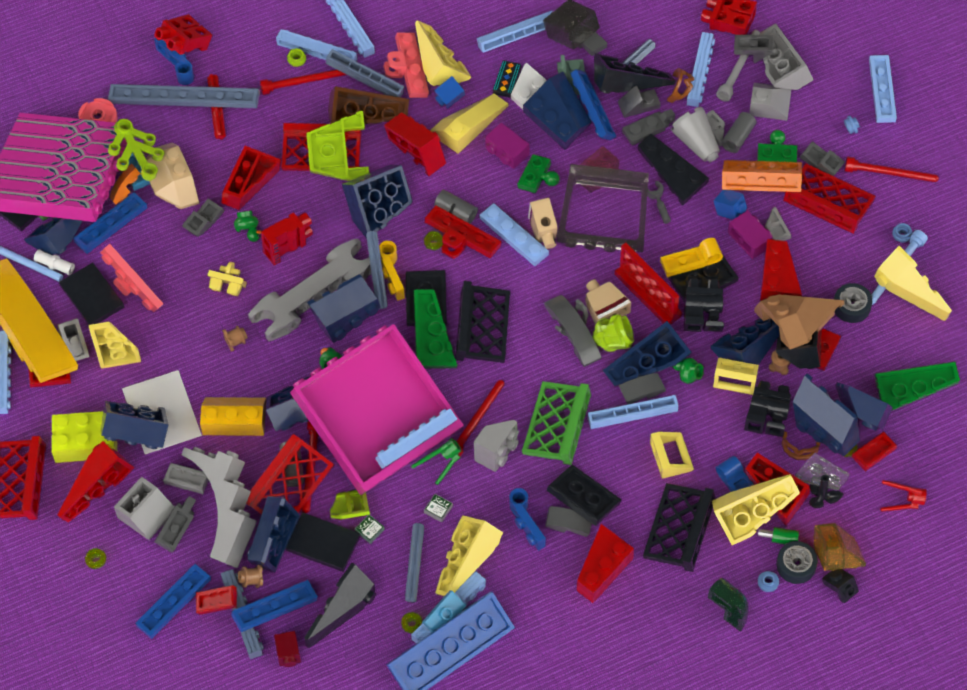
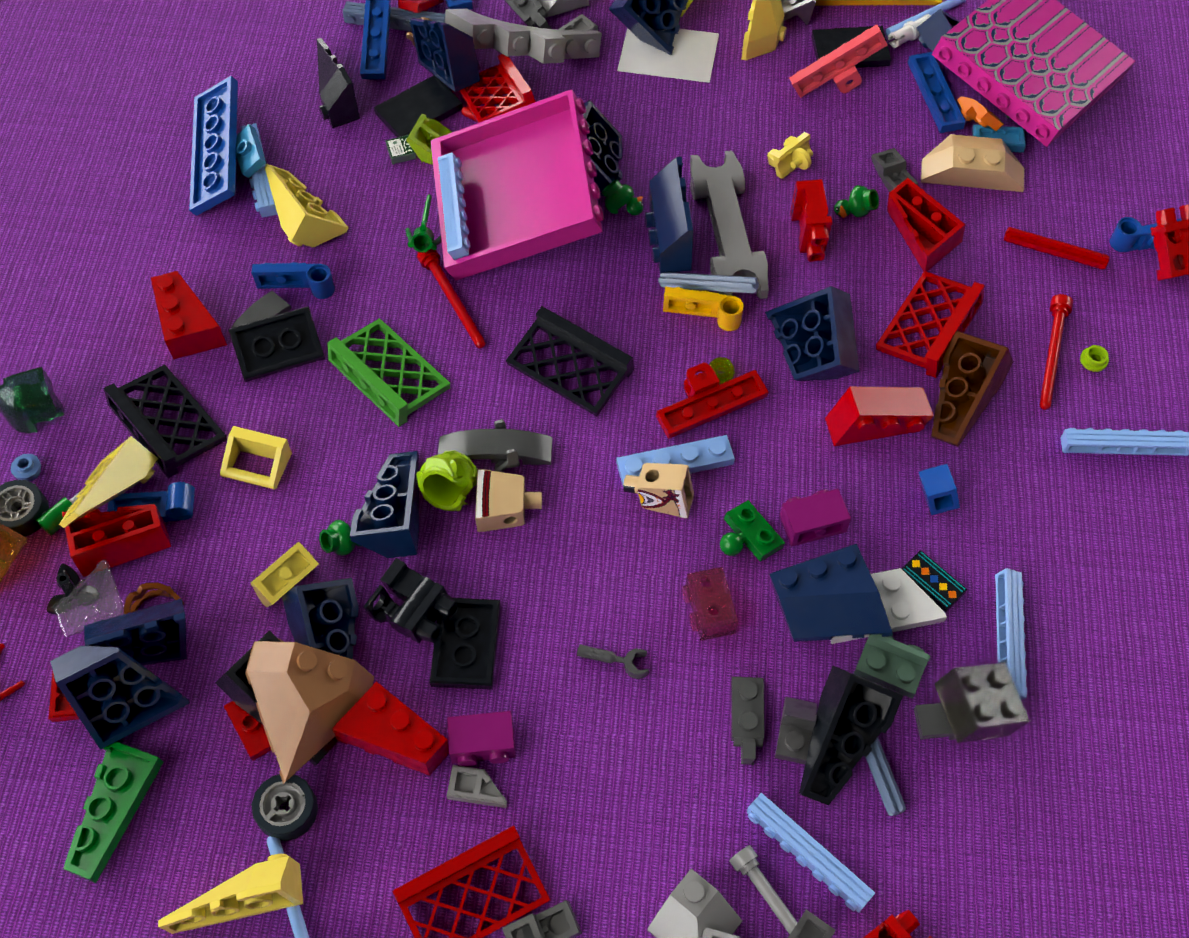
camera: 120 degrees right, 0 degrees up
(98, 106) = (1097, 147): coral plate -> none
(125, 129) = (1014, 115): lime plant -> none
(184, 96) = (1084, 220): sand blue tile -> none
(233, 416) = (621, 90): yellow slope -> none
(234, 337) = (712, 131): medium nougat brick -> none
(287, 649) = (330, 29): dark red brick -> none
(310, 46) = (1099, 387): light blue piece -> none
(328, 149) = (913, 313): lime wing -> none
(364, 74) = (1022, 410): sand blue piece -> none
(408, 64) = (1018, 473): coral plate -> none
(411, 616) = (272, 135): clear neon green plate -> none
(414, 562) = (333, 167): sand blue axle -> none
(424, 281) = (646, 328): black tile -> none
(430, 332) = (592, 300): green wing -> none
(437, 58) = (1002, 511): light yellow wedge -> none
(438, 508) = (376, 215): tile -> none
(456, 206) = (753, 414): dark grey pin -> none
(466, 124) = (883, 496): light yellow wedge -> none
(495, 444) = (395, 282): light grey slope -> none
(591, 101) = (818, 652): blue plate -> none
(604, 178) = (666, 592): clear smoke windscreen -> none
(632, 412) = (336, 450): light blue piece -> none
(641, 387) = (359, 476): dark grey slope -> none
(648, 286) = (477, 563): red fence -> none
(673, 169) = (648, 709): black wing -> none
(678, 73) = (815, 814): dark orange helmet -> none
(693, 258) = (489, 630): yellow plate -> none
(697, 134) = (684, 763): light grey cone -> none
(717, 126) = (696, 809): light grey tile -> none
(730, 204) = (542, 736): blue brick -> none
(738, 132) = (659, 832): dark grey pin -> none
(762, 176) = (537, 795): orange fence -> none
(771, 403) = (225, 604): black hips -> none
(776, 151) = (594, 868): green plate -> none

